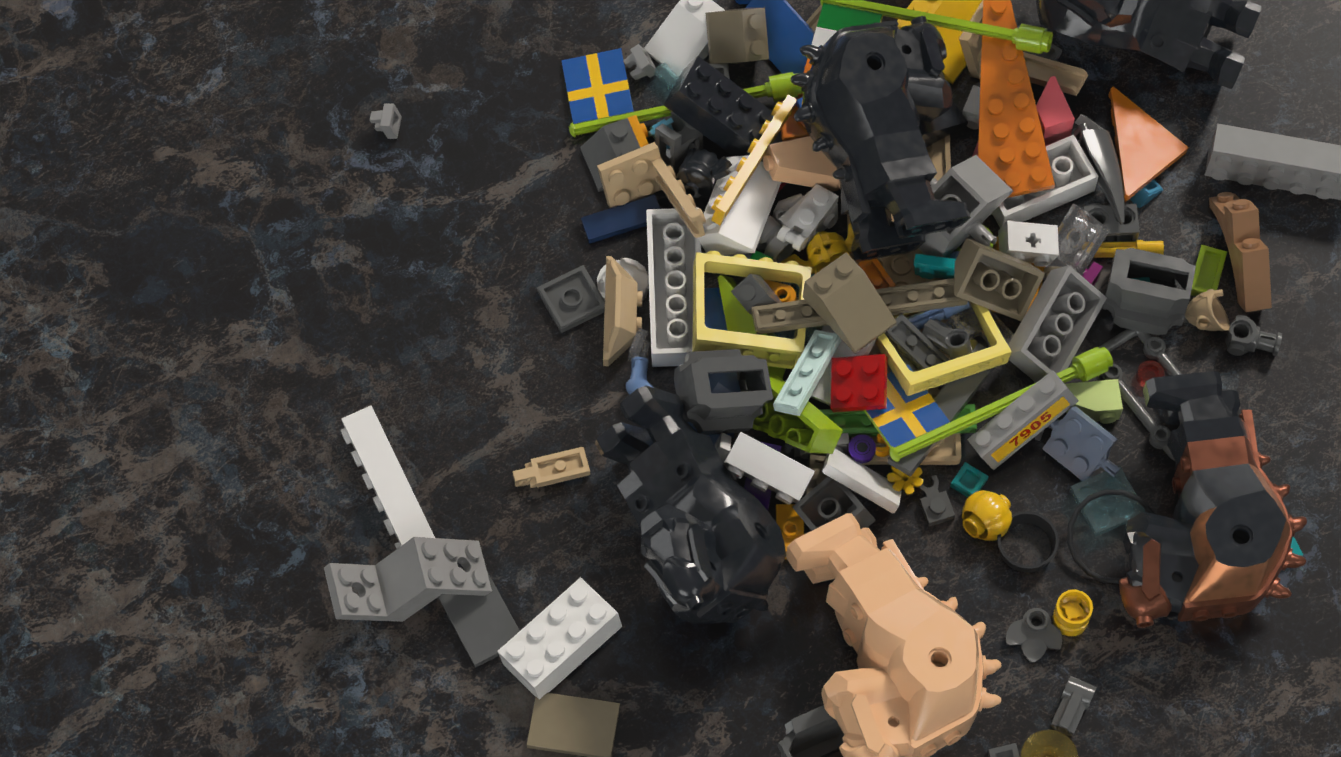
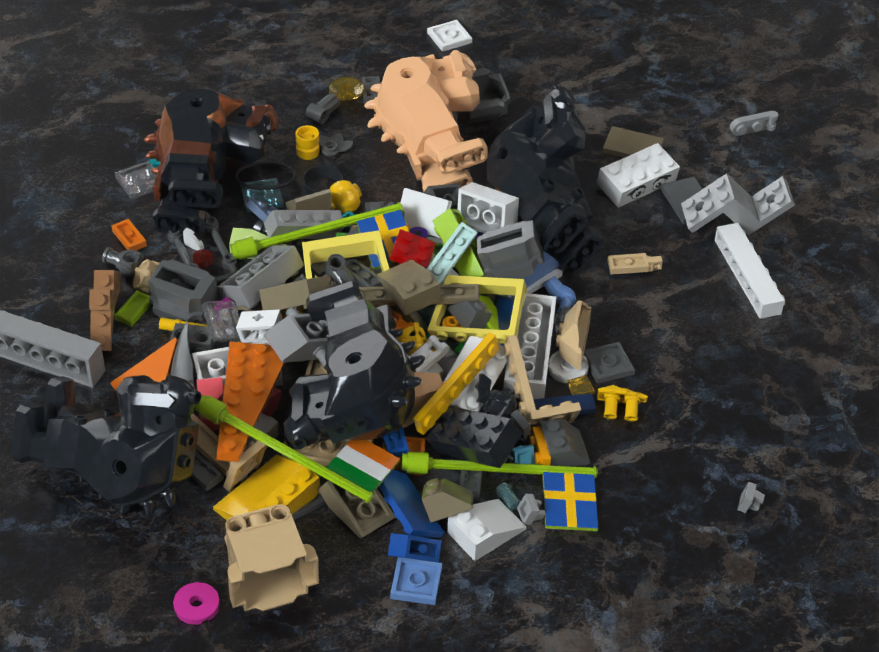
camera: 175 degrees left, 20 degrees down
(551, 231) = (613, 395): none -> yellow connector
(600, 249) = (580, 385): none -> clear yellow tile
(1030, 470) = (315, 201): none -> dark tan slope
(1264, 388) = (129, 235): none -> orange plate
(1305, 496) = (137, 179): none -> clear plate

